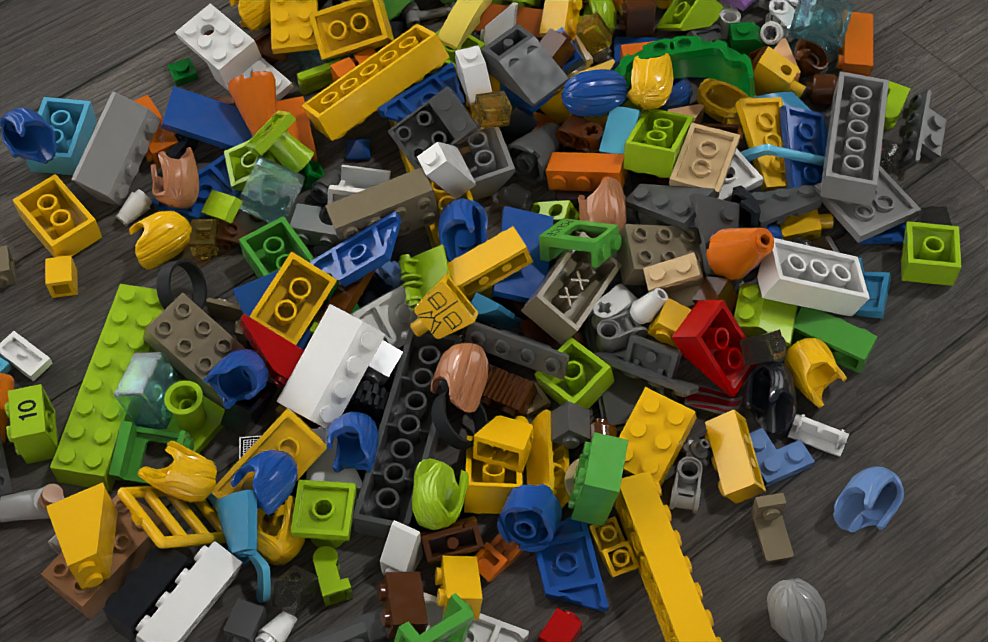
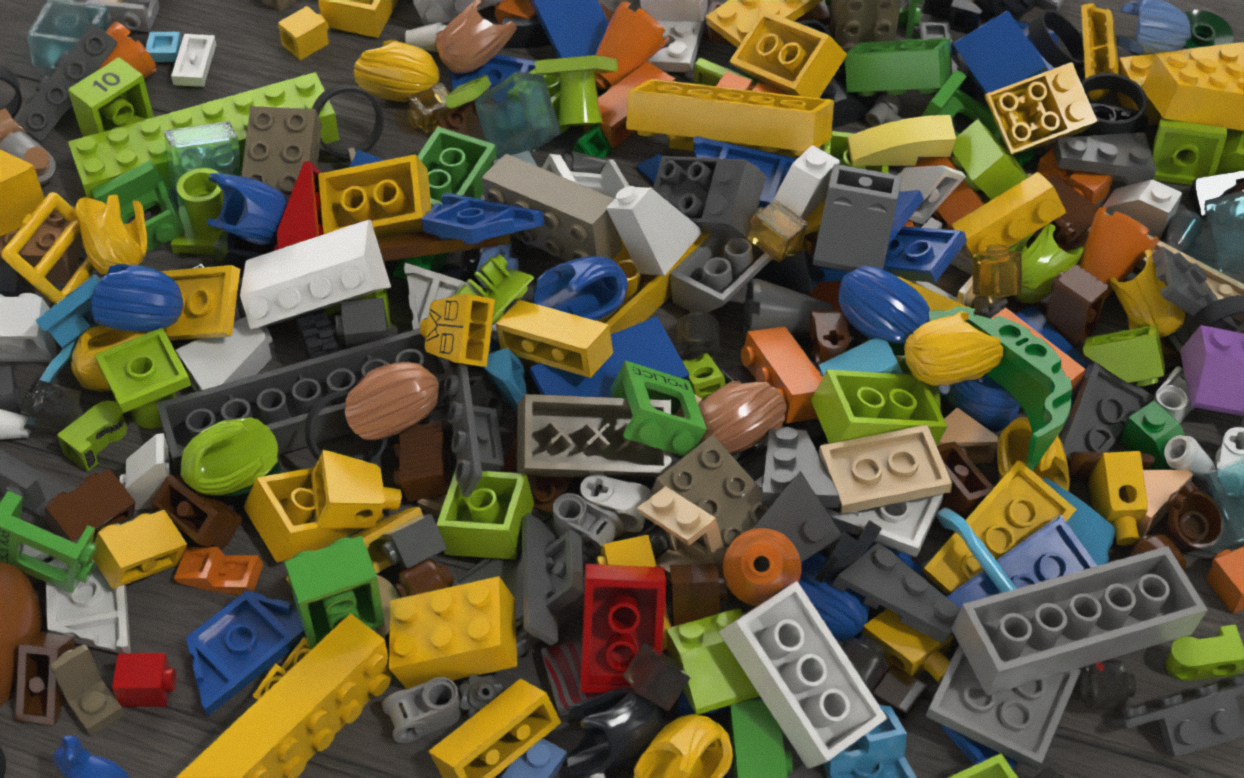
camera: 55 degrees right, 5 degrees down
(356, 441) = (243, 353): blue hair -> none
(530, 517) = (256, 560): blue brick -> none
(558, 46) = (917, 240): reddish brown brick -> none
(648, 306) = (624, 524): white cone -> none

